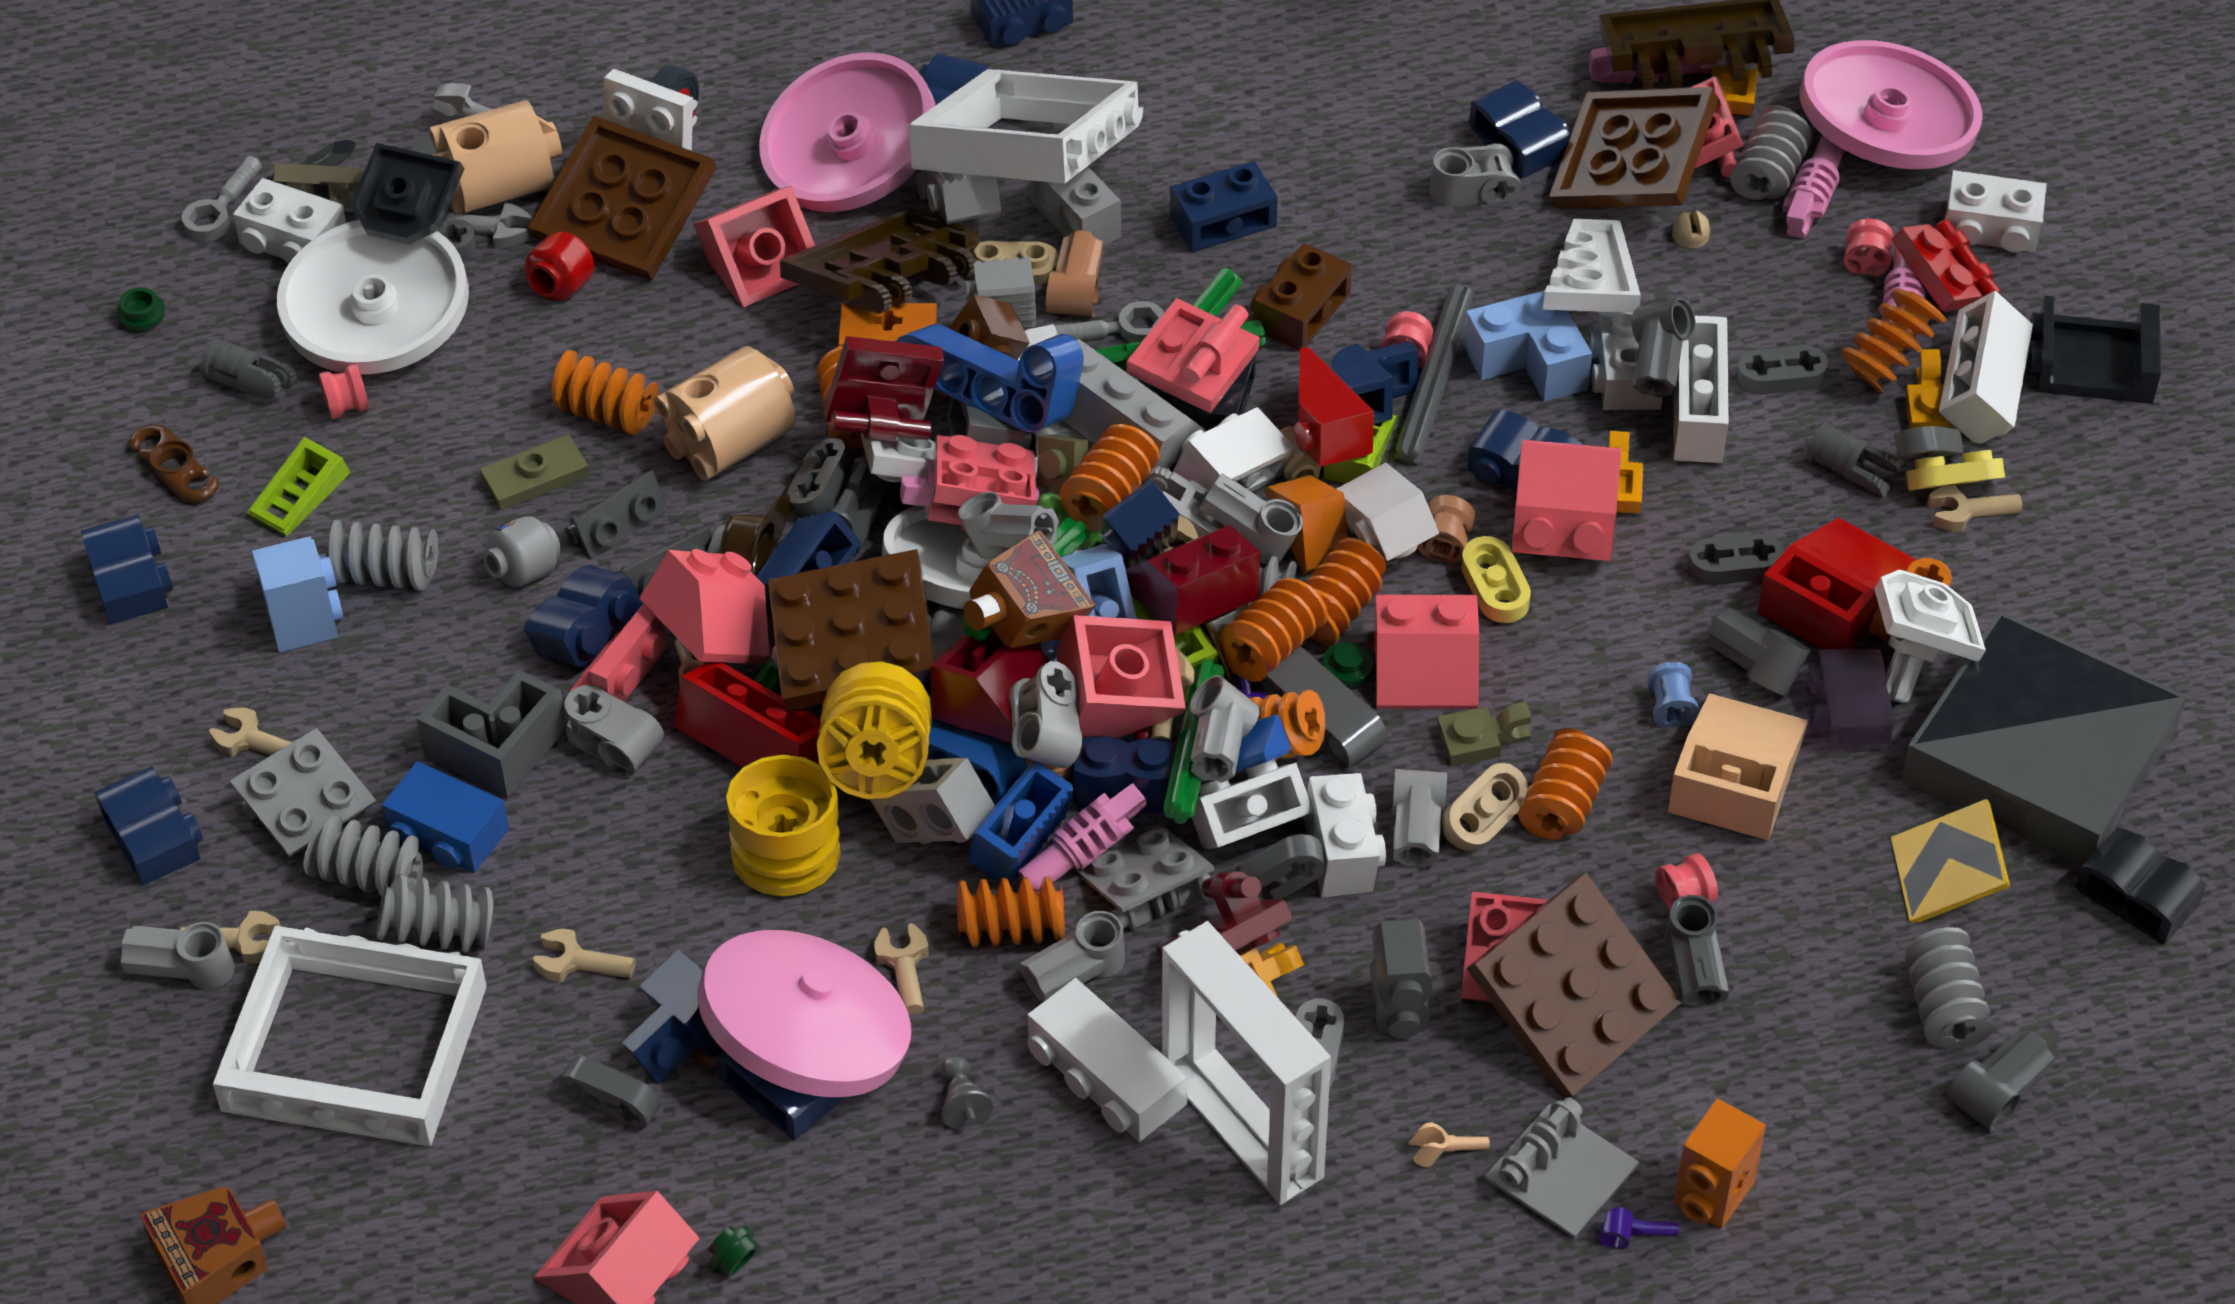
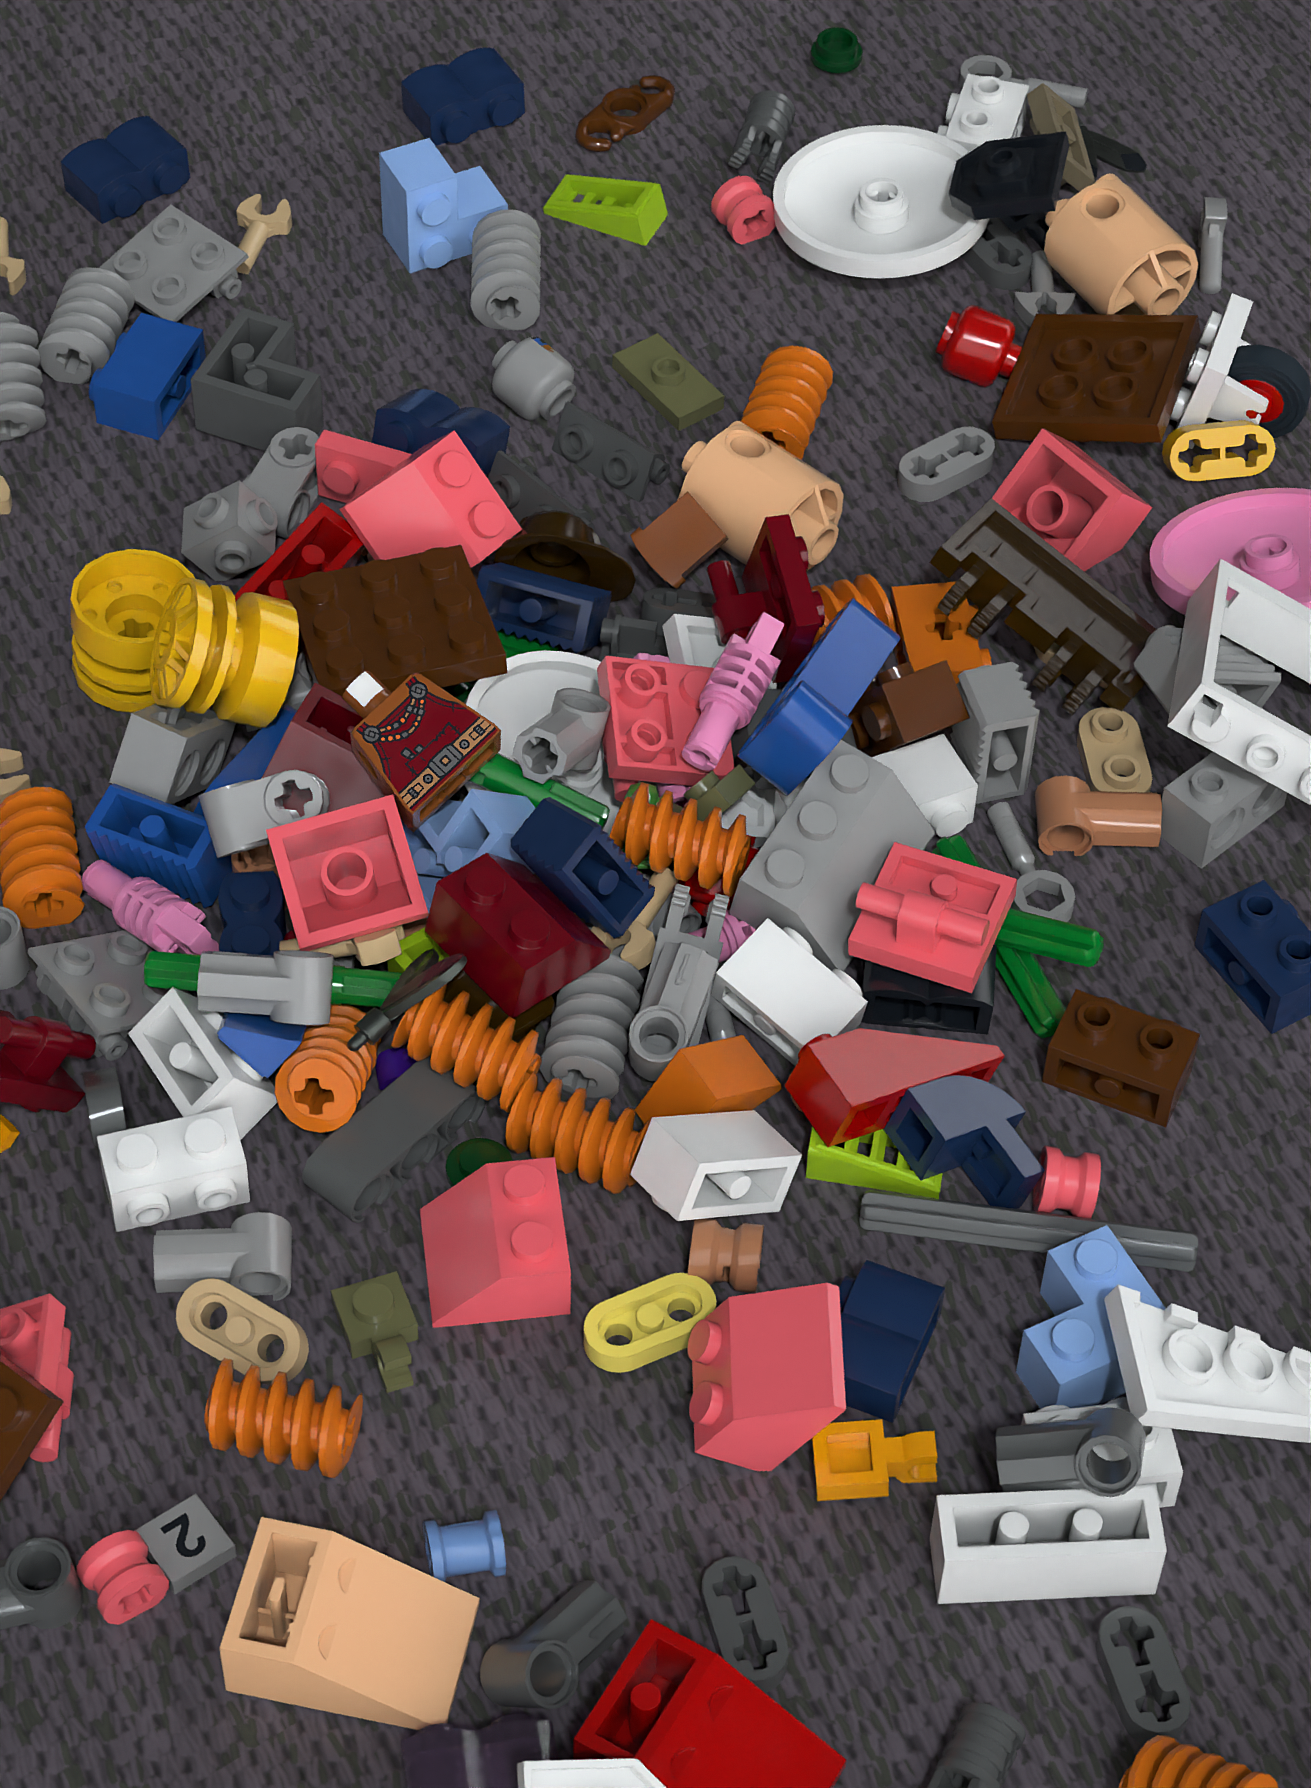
camera: 80 degrees right, 0 degrees up
(679, 777) = (229, 532): none -> light grey brick
(688, 307) = (942, 460): none -> light grey beam
(716, 138) = (1219, 463): none -> yellow beam
(759, 466) = (679, 540): none -> dark orange tile
(981, 415) = (733, 692): none -> bright pink hinge
(1244, 650) = (416, 983): none -> pearl dark grey piece
(1647, 852) = (187, 1543): none -> light grey tile

